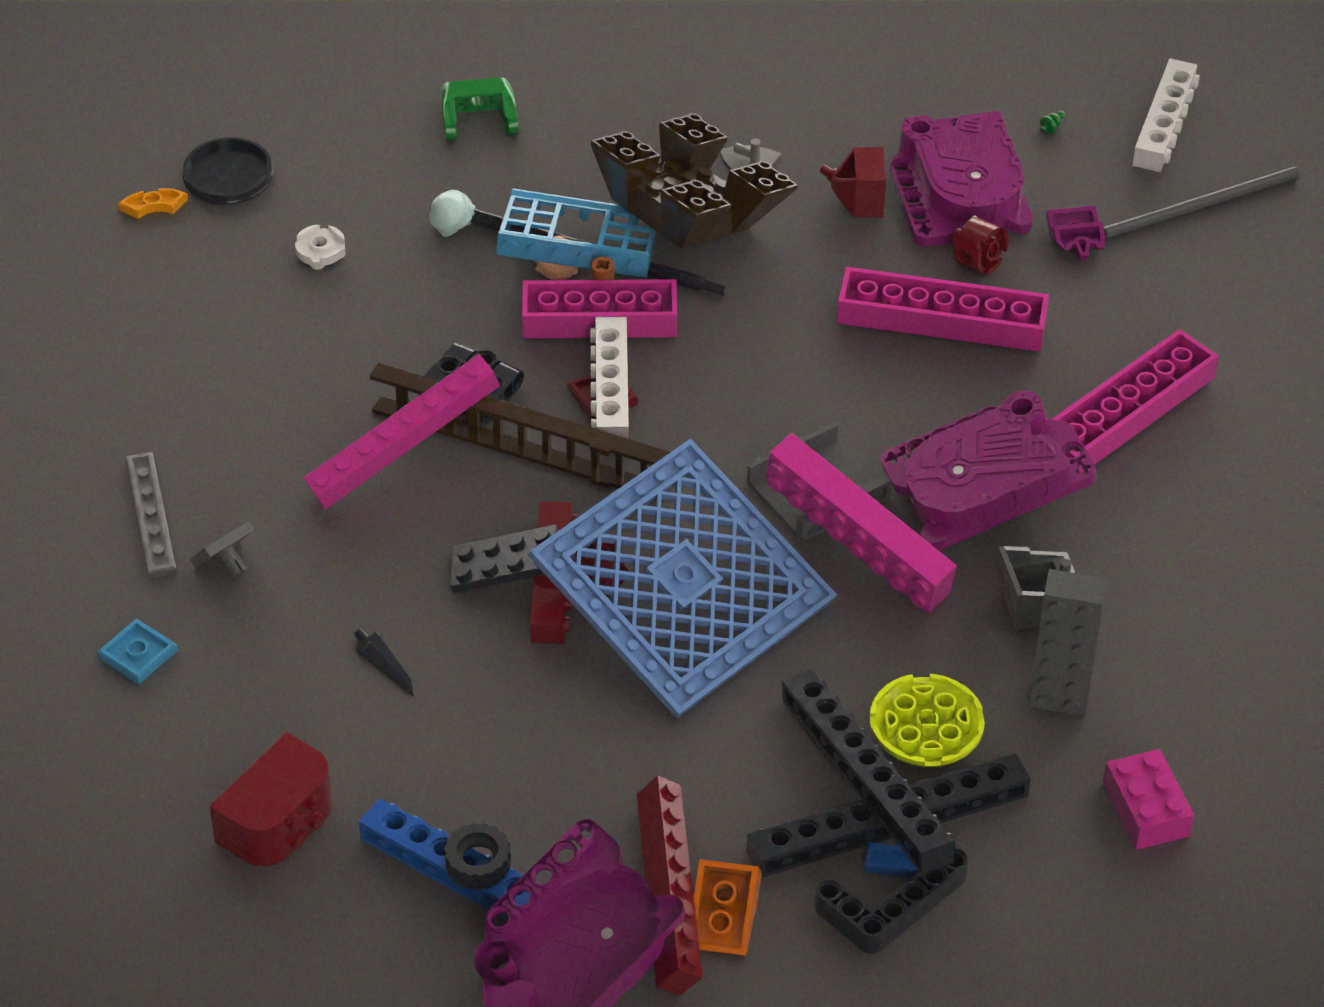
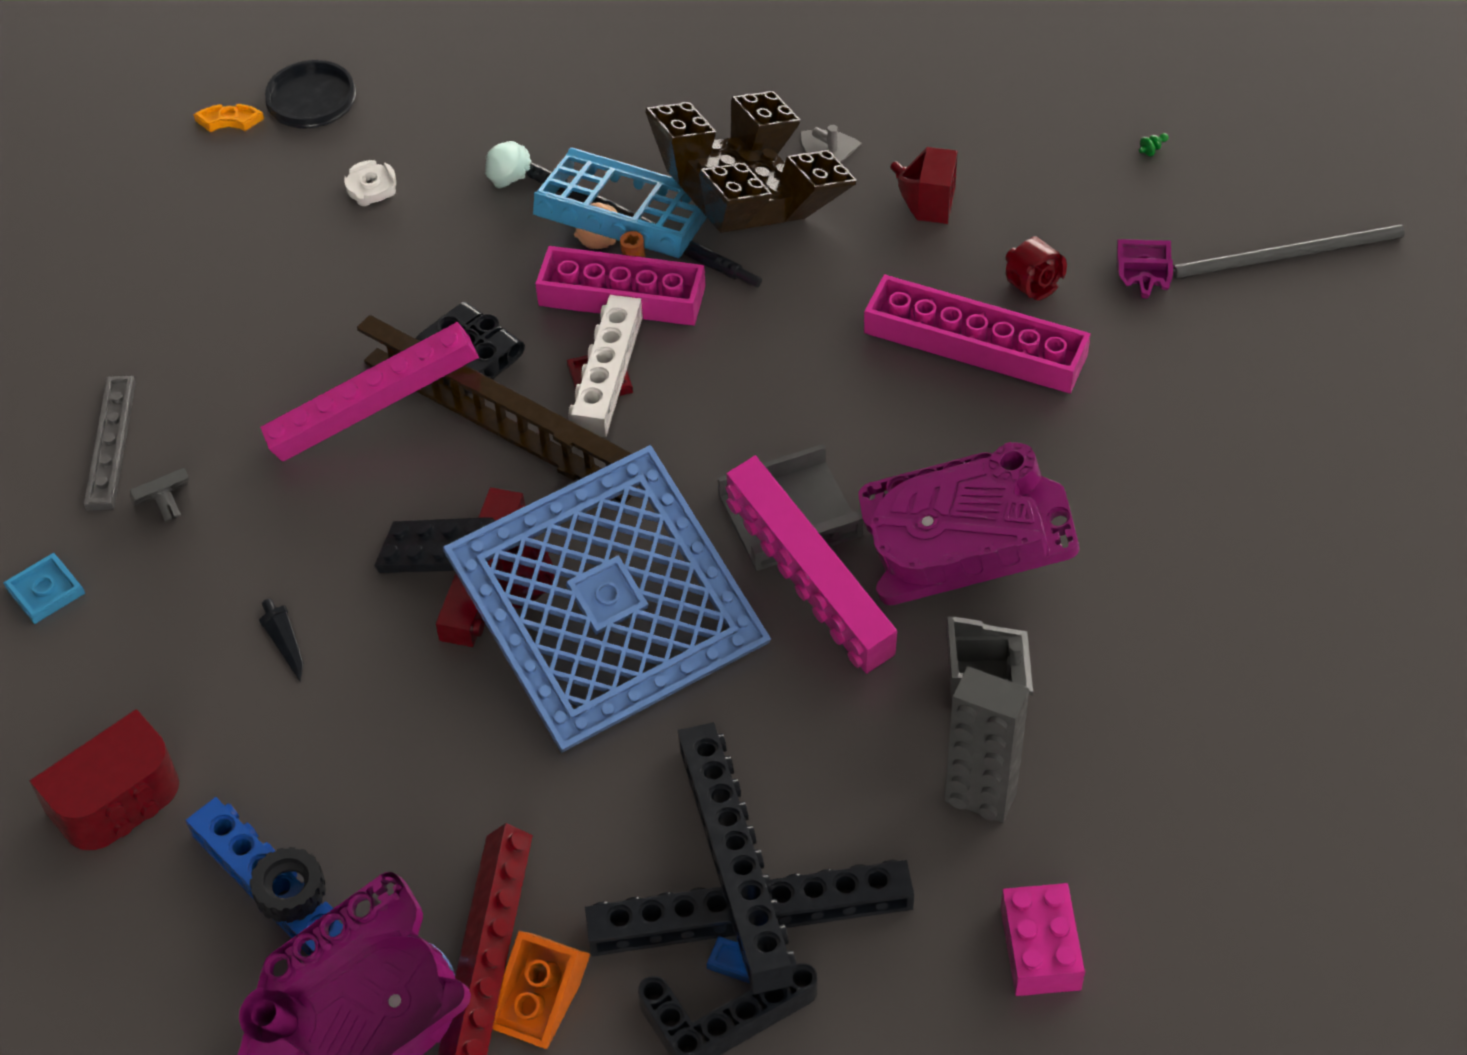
camera: 15 degrees right, 5 degrees up
(478, 96) = (571, 47): green connector -> none
(927, 720) = (828, 779): neon yellow brick -> none
(958, 172) = (1036, 186): magenta piece -> none
(1139, 394) = (1154, 462): dark pink brick -> none
(1165, 115) = (1274, 152): white brick -> none

